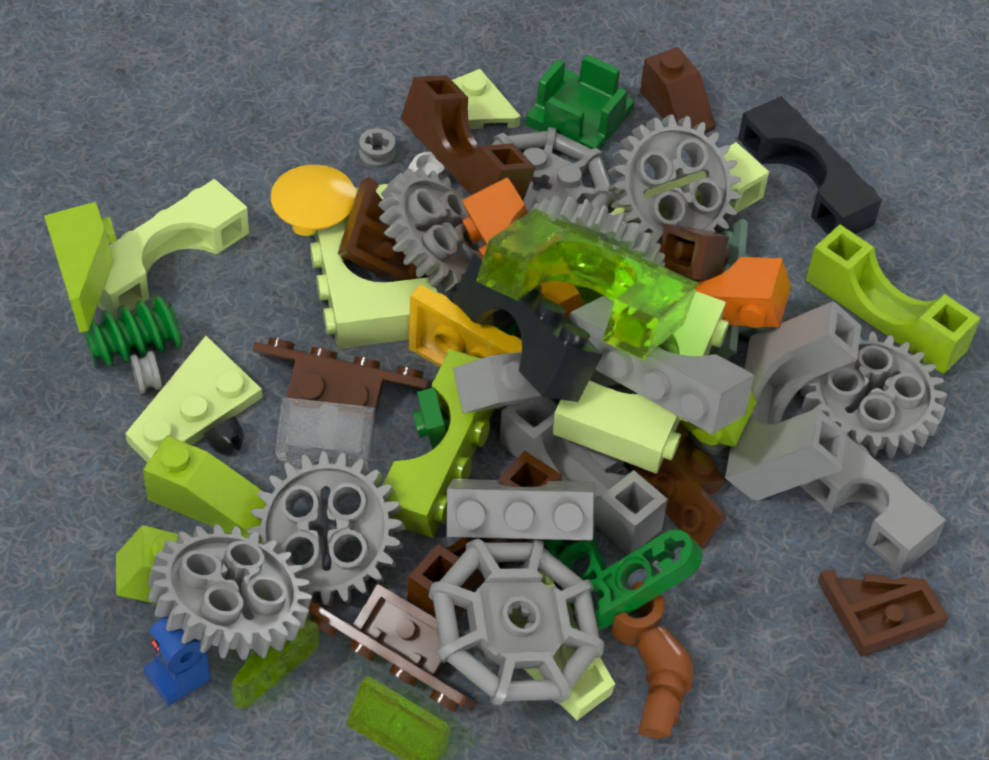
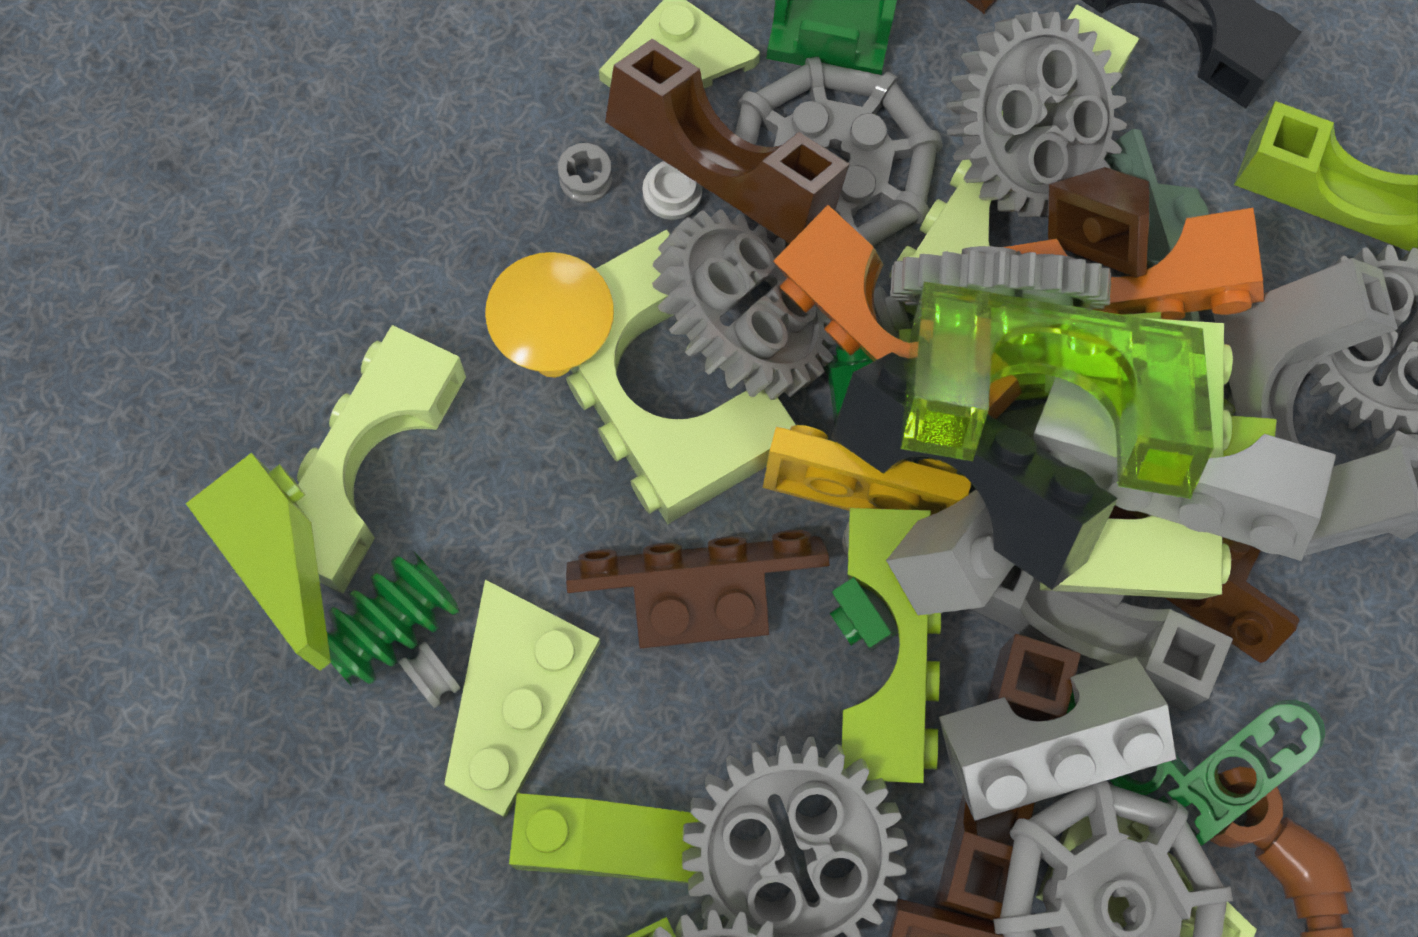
camera: 20 degrees left, 20 degrees up
(226, 436) = (580, 731): black hinge -> none
(324, 426) = (725, 692): clear brick -> none
(365, 238) = (648, 352): reddish brown wing -> none

